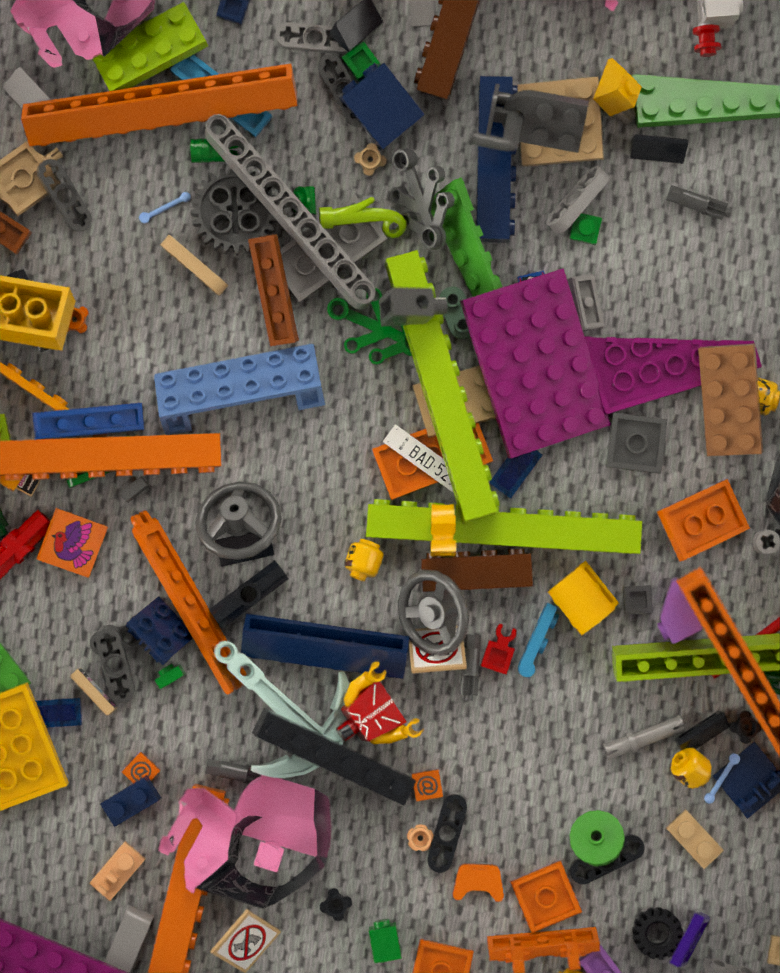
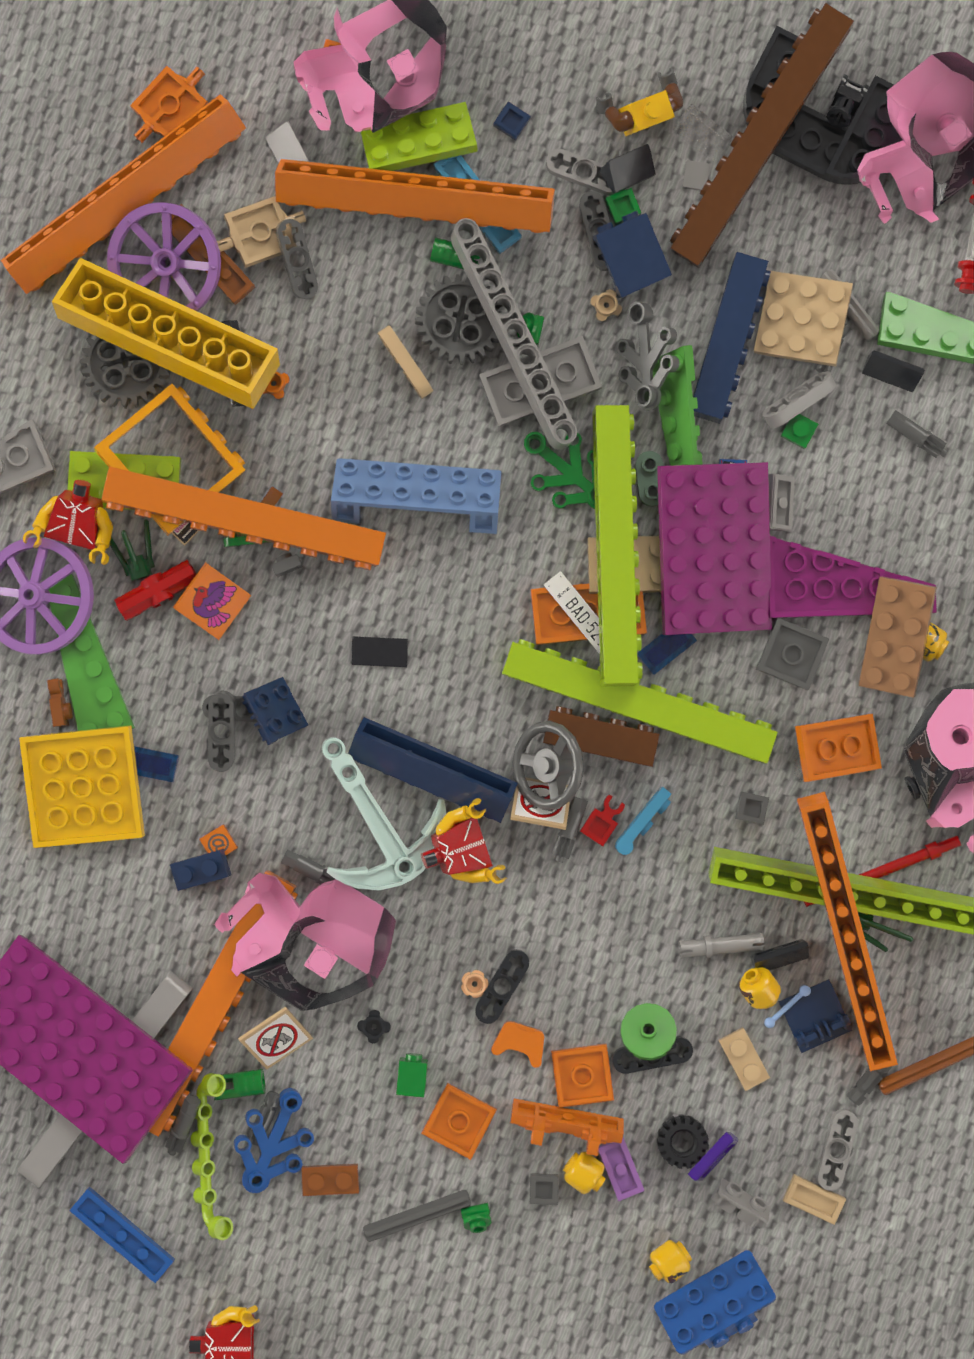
camera: 15 degrees right, 0 degrees up
(88, 421) = (260, 486): blue tile -> none
(93, 691) = (193, 752): tan tile -> none
(117, 871) = (168, 935): light nougat plate -> none
(145, 217) = (370, 302): light blue hinge -> none
(168, 675) = (271, 756): green plate -> none
(184, 596) = (307, 683): orange hinge -> none
(234, 605) = (354, 706): black piece -> none
(237, 520) = (380, 622): dark grey piece -> none
(273, 290) = (476, 406): dark orange plate -> none
(333, 756) = (411, 880): black brick -> none
(359, 214) = (580, 354): lime plant -> none
(363, 559) = (493, 695): yellow head -> none
(410, 306) = (607, 457): dark grey torso -> none
(427, 785) = (495, 934): orange tile -> none
(443, 530) = (579, 687): yellow leg -> none
(535, 120) = (779, 308): dark grey plate -> none
(583, 598) = (699, 792): yellow brick -> none
(616, 89) = (868, 300): yellow slope -> none
(677, 616) = (788, 833): medium lavender slope -> none
(753, 727) = (823, 970): black plate -> none
(774, 540) = (902, 786): light grey bush -> none

